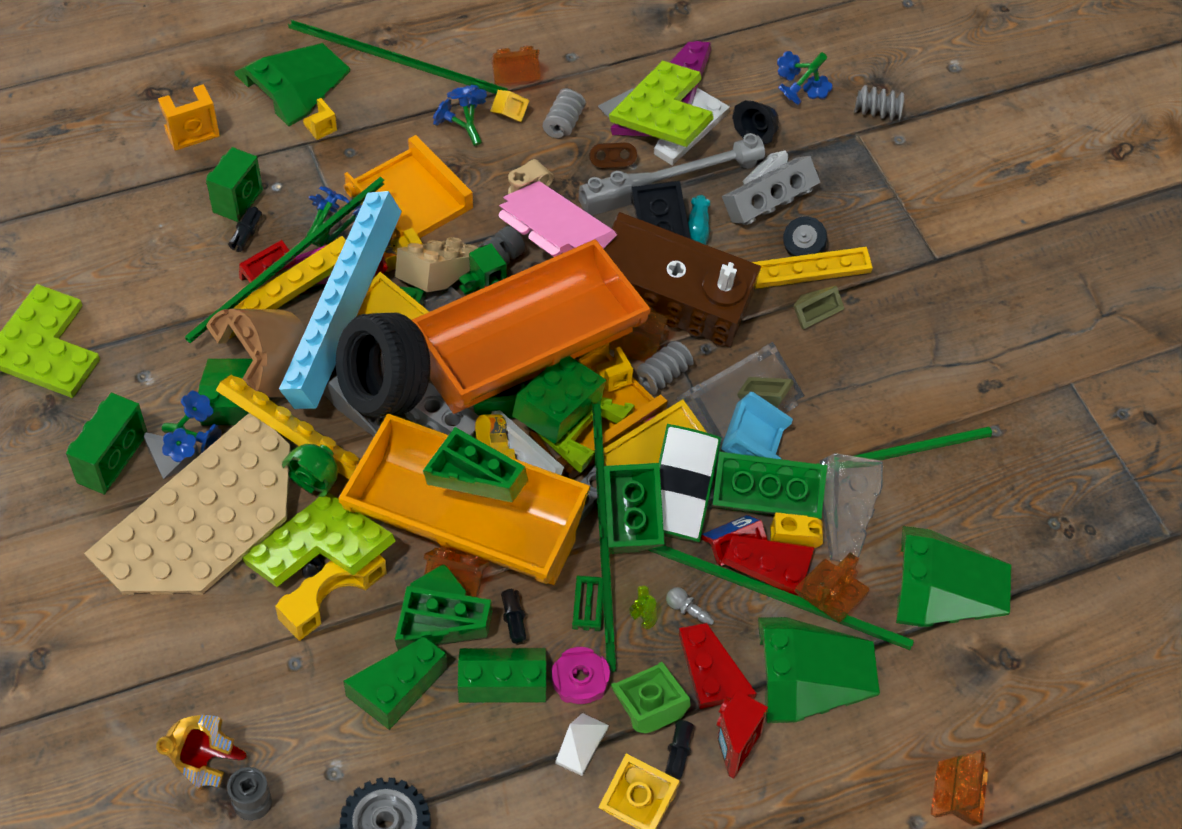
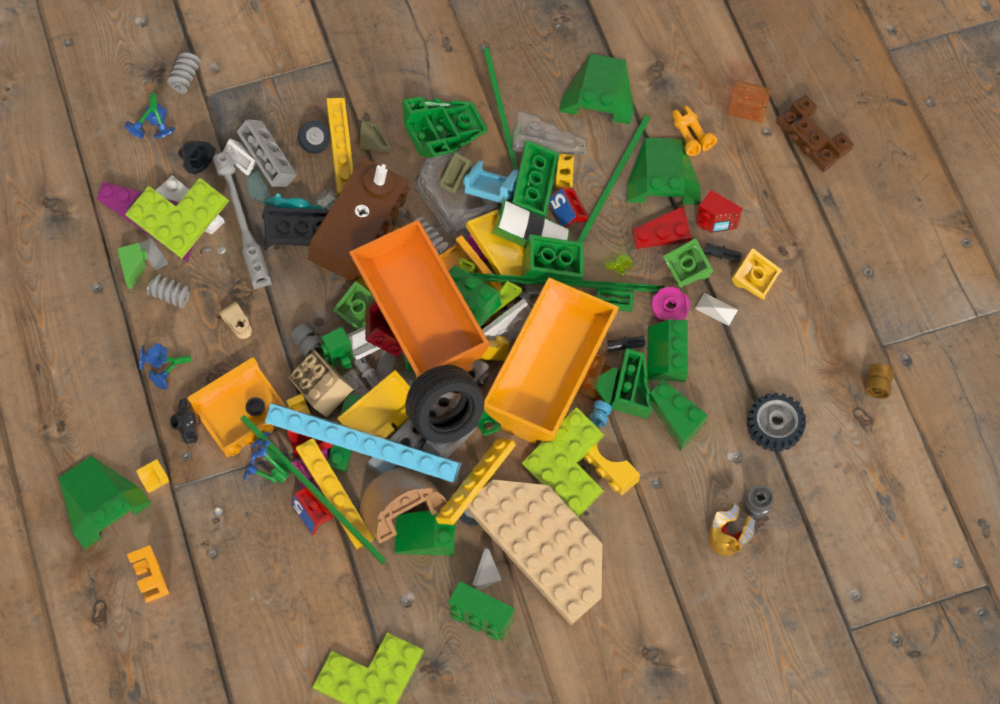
camera: 85 degrees left, 10 degrees up
(180, 441) = (466, 540): blue plant -> none
(234, 184) = (228, 534): green brick -> none
(245, 229) = (267, 529): black axle -> none
(312, 468) = (514, 462): green cylinder -> none
(386, 141) = (185, 422): none -> black piece
(395, 57) = (81, 421): green piece -> none
(397, 581) = (600, 413): none -> dark azure wheel
(407, 201) = (255, 406): none -> black plate
(475, 469) = (541, 342): green wedge -> none
(509, 105) = (153, 331): yellow panel -> none
(515, 66) = (109, 325): clear orange bracket -> none
(552, 219) = (307, 288): bright pink slope -> none
(599, 78) = (132, 262): none -> bright green slope
(612, 155) = (216, 259): reddish brown plate -> none
(678, 599) = (615, 243): light grey bar -> none
(719, 188) = (257, 188): none -> clear light blue tile
(769, 561) = (589, 186): red wing -> none
(834, 587) = (609, 153): clear orange bracket -> none
(847, 378) = (441, 126): none -> green wedge
(906, 689) = (689, 119): none -> light orange piece

